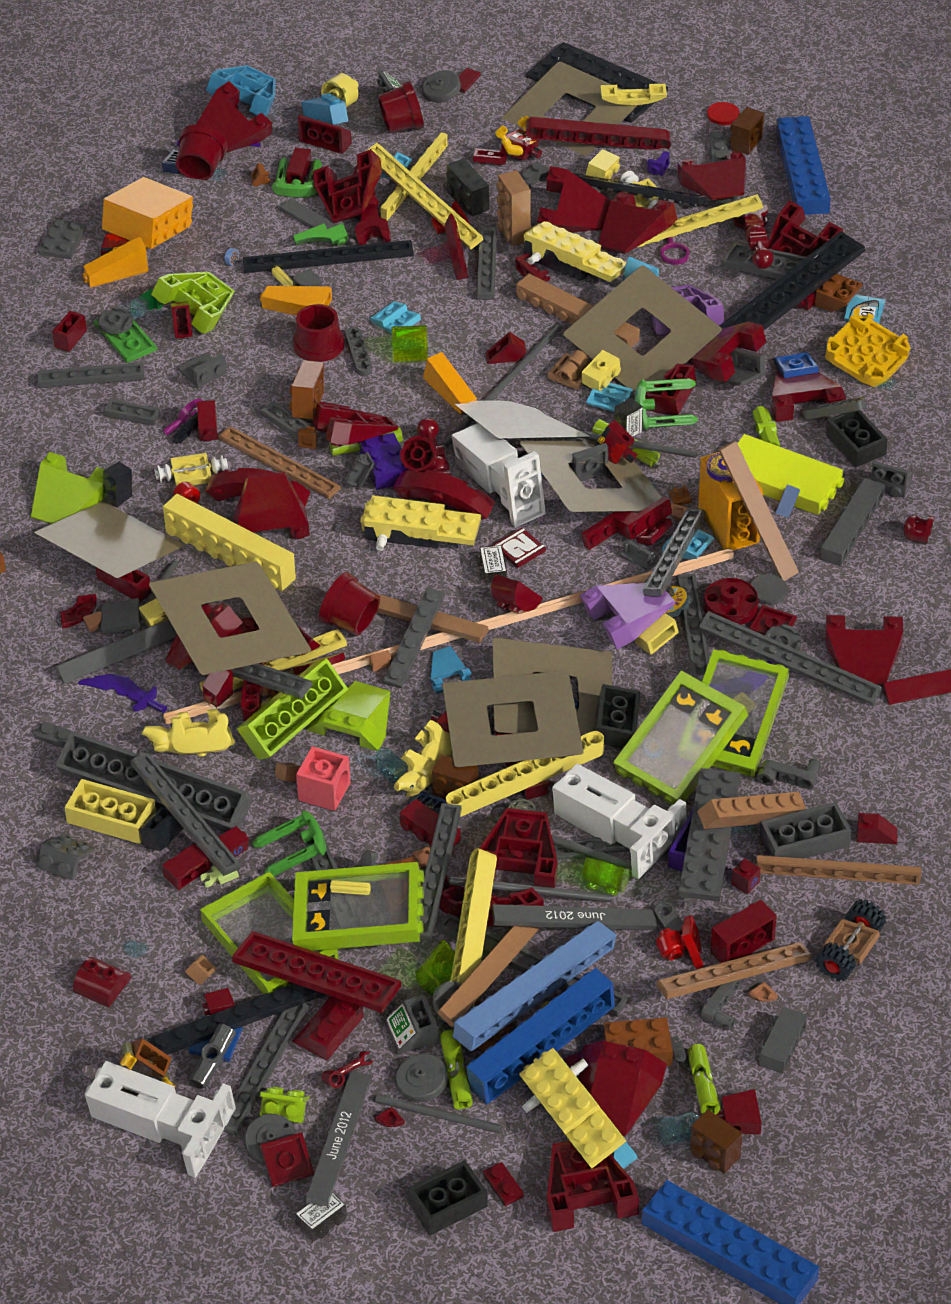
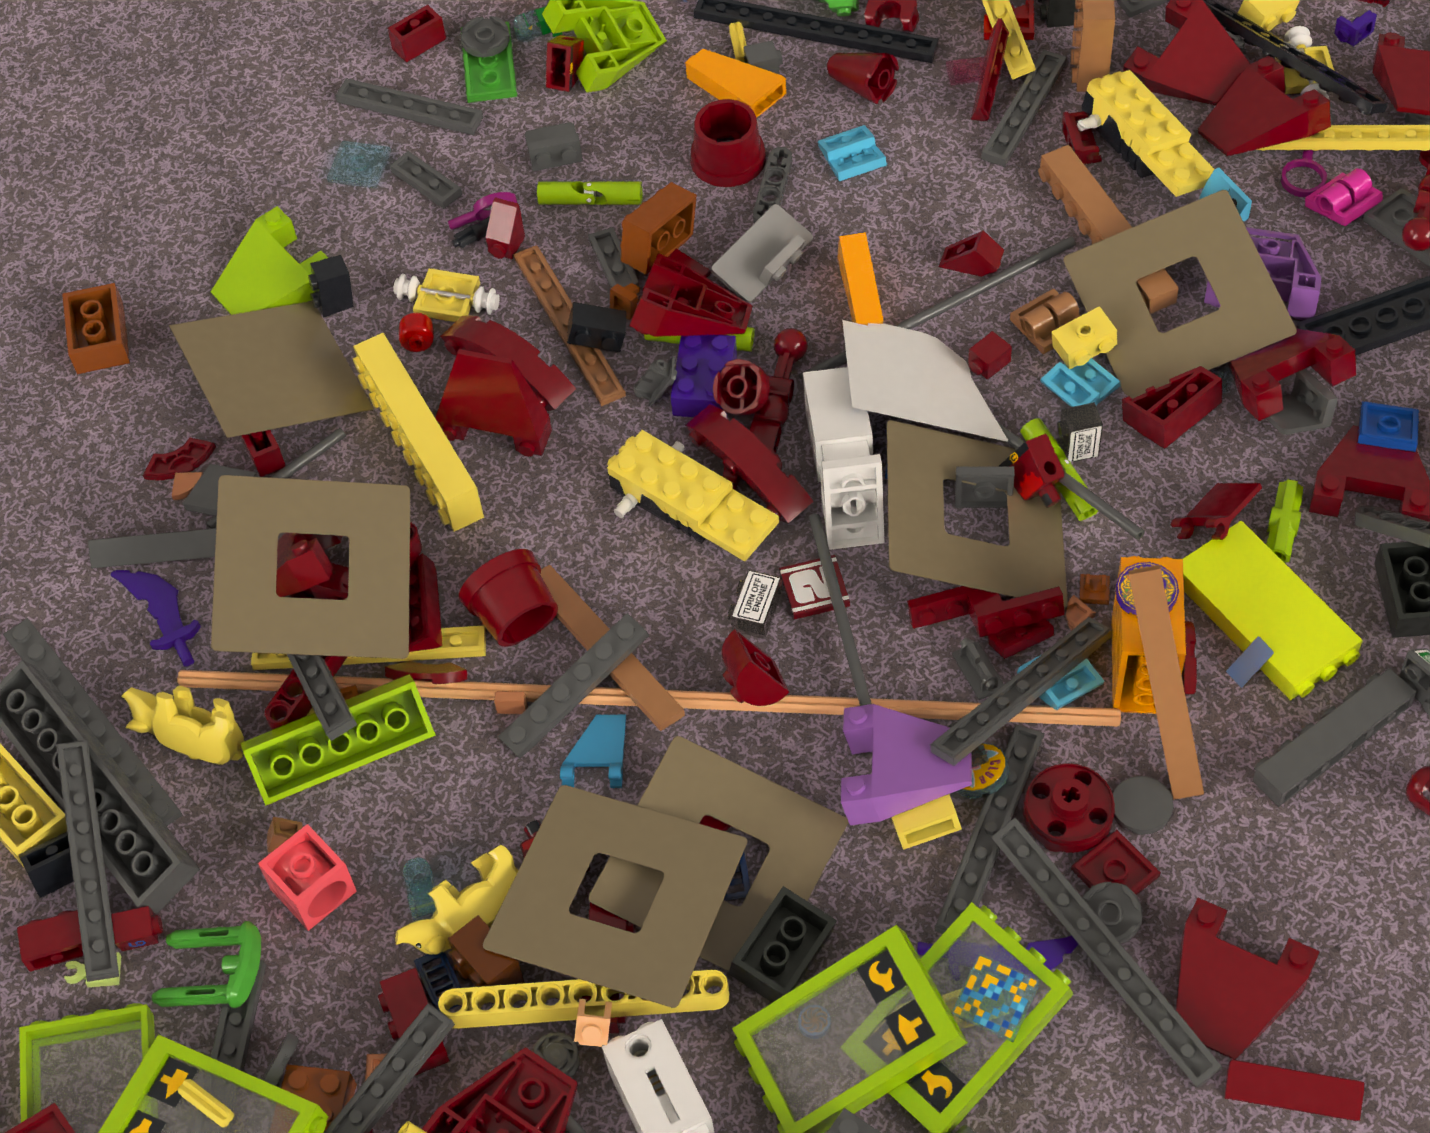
camera: 30 degrees right, 10 degrees up
(79, 417) = (359, 164): none -> clear light blue tile
(218, 687) = (259, 668): dark red slope -> none
(242, 388) = (585, 193): none -> lime piece
(302, 455) = (596, 327): none -> black brick
(358, 712) = (431, 780): lime wedge -> none
(377, 271) = (865, 73): none -> dark red cone
(378, 387) = (762, 253): none -> light grey bracket
(409, 343) = (842, 201): clear neon green brick -> none
(541, 778) = (592, 1029): none -> light nougat window
(542, 550) = (839, 610): none -> dark grey piece
(549, 398) = (989, 355): none -> dark red brick
(649, 404) = (1114, 417): bright green piece -> none
(706, 255) = (1345, 197): none -> dark pink plate
(727, 431) = (1217, 509): none -> dark red flag
(752, 687) = (996, 997): none -> tile

